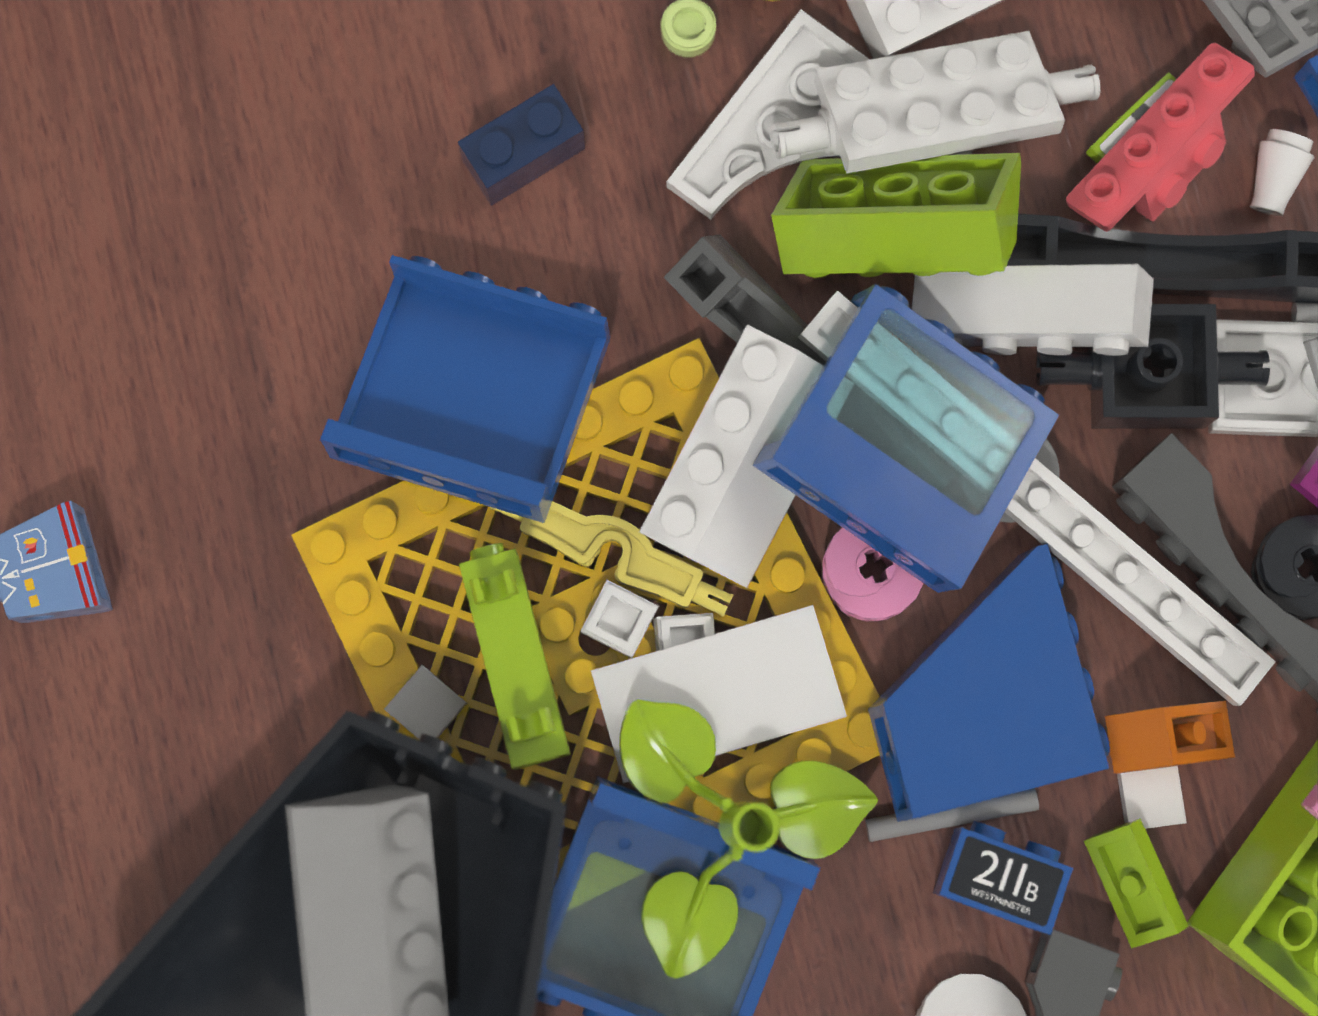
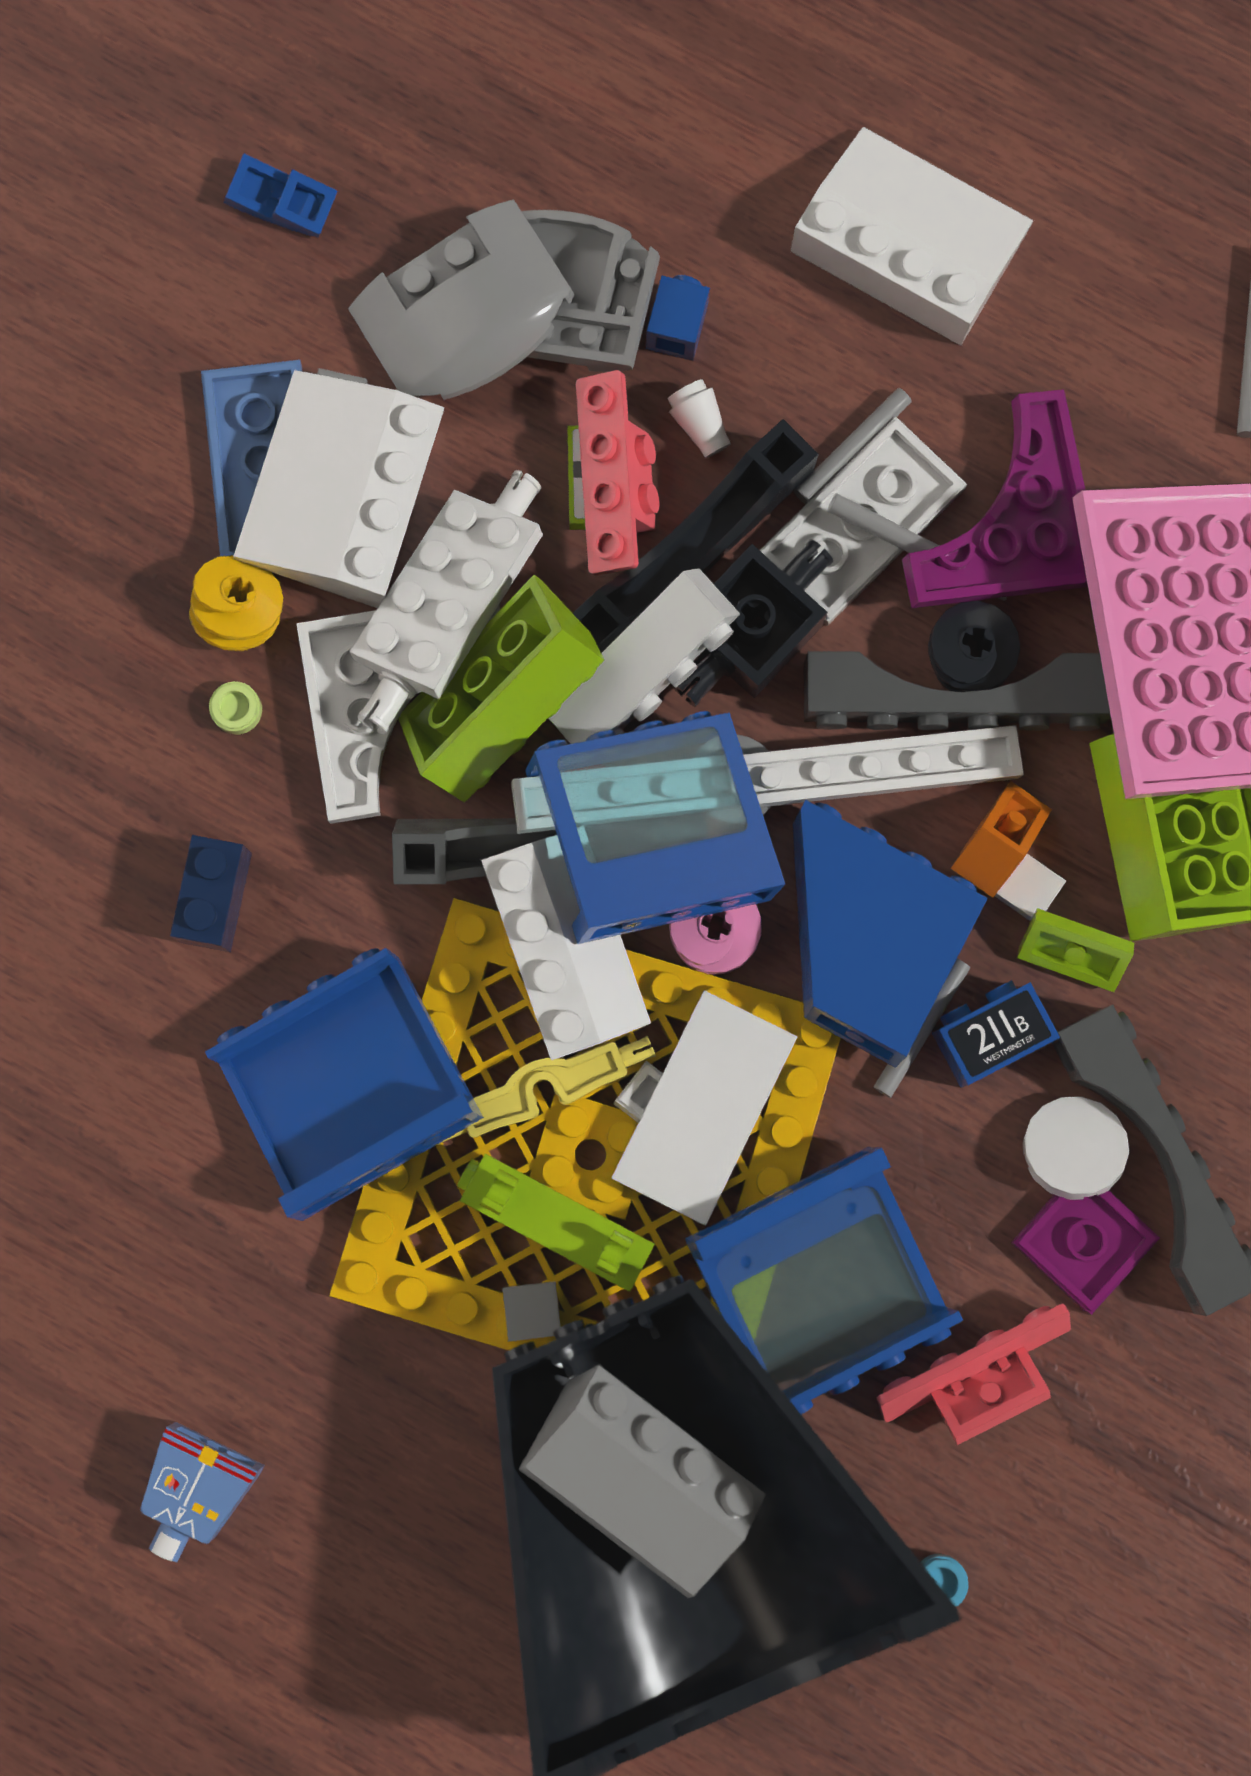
camera: 50 degrees left, 0 degrees up
(619, 619) = (594, 1126): white tile -> none
(815, 816) = (843, 1117): lime plant -> none

